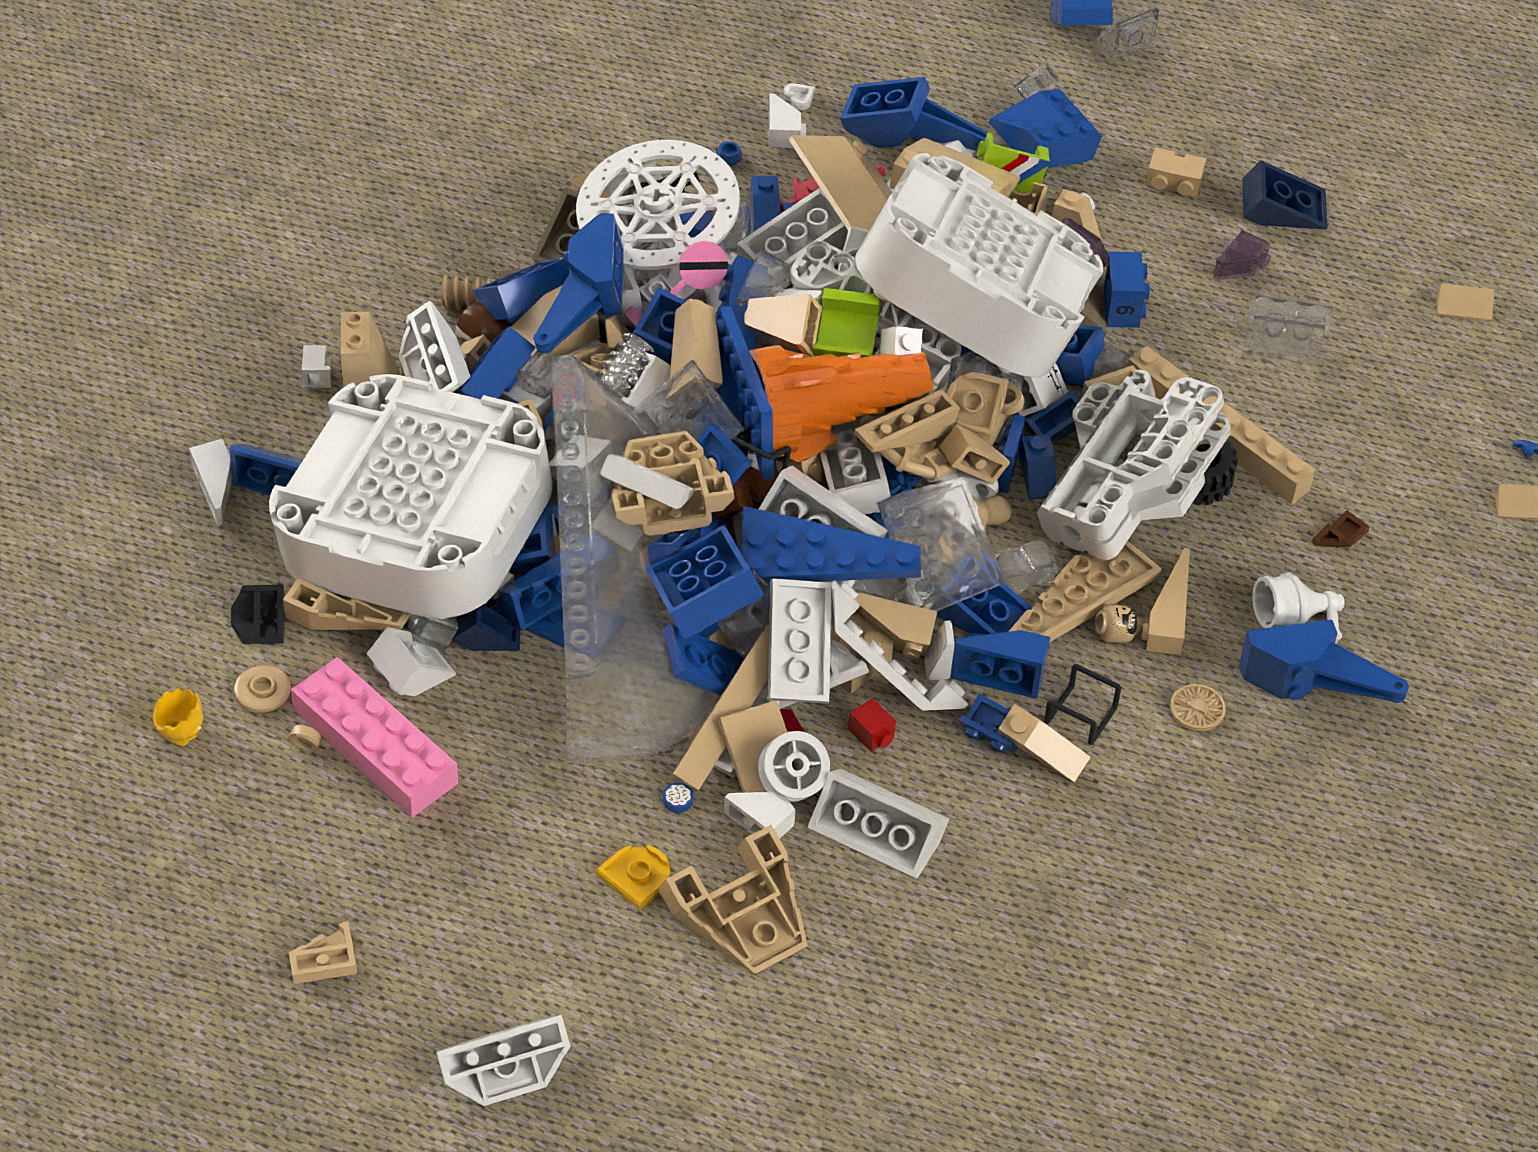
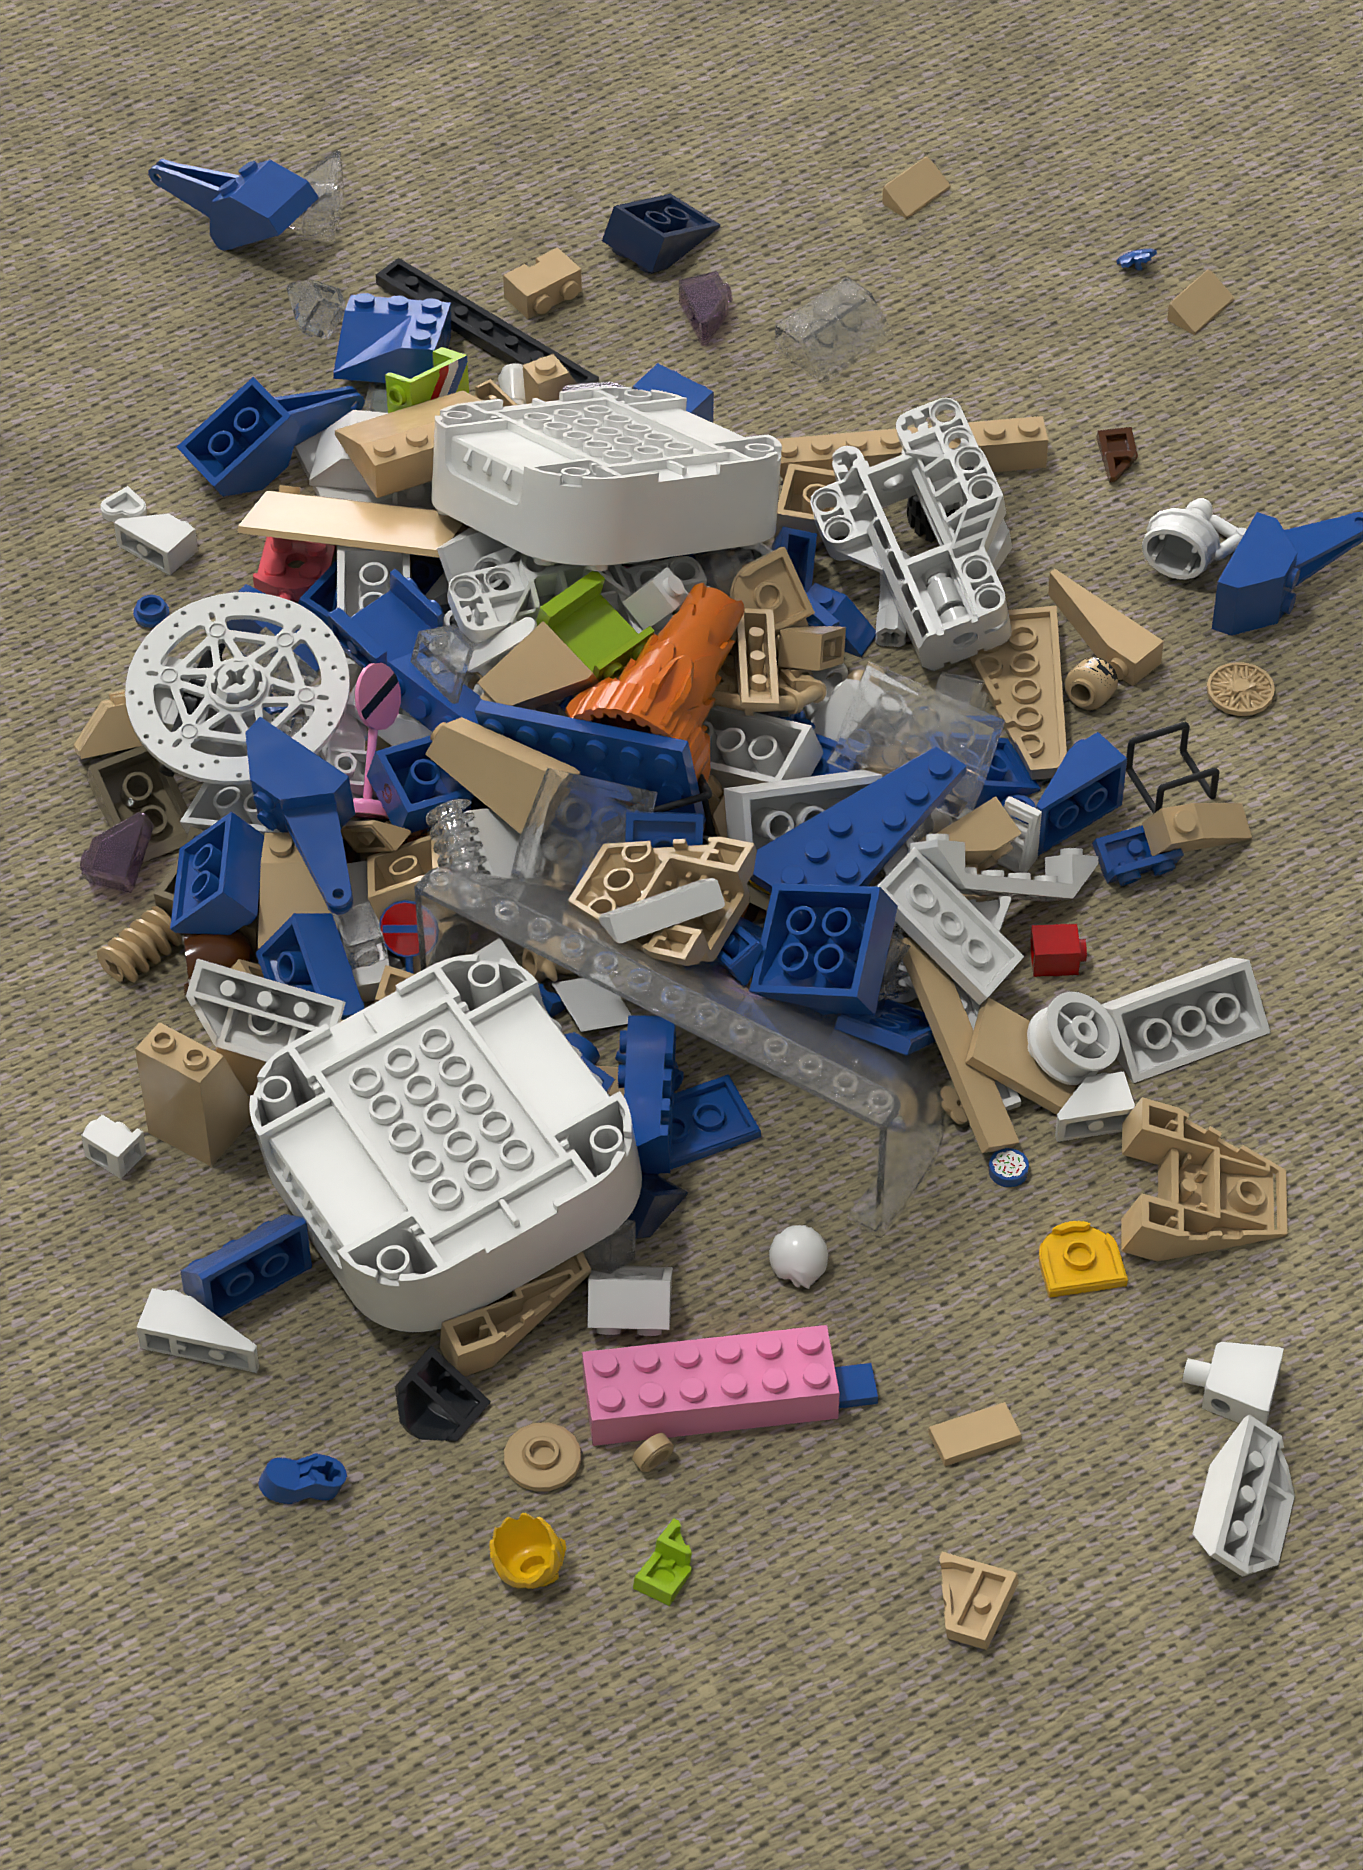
camera: 50 degrees left, 0 degrees up
(154, 586) = (308, 1477): none -> blue piece
(232, 793) = (667, 1567): none -> lime slope
(440, 810) = (856, 1385): none -> blue tile
(454, 891) = (974, 1434): none -> tan tile
(512, 727) = (799, 1255): none -> white hair
(525, 243) = (118, 854): none -> clear purple slope
(606, 1007) = (1237, 1380): none -> white torso
(776, 240) = (388, 624): none -> blue panel
(1110, 170) = (474, 321): none -> black plate

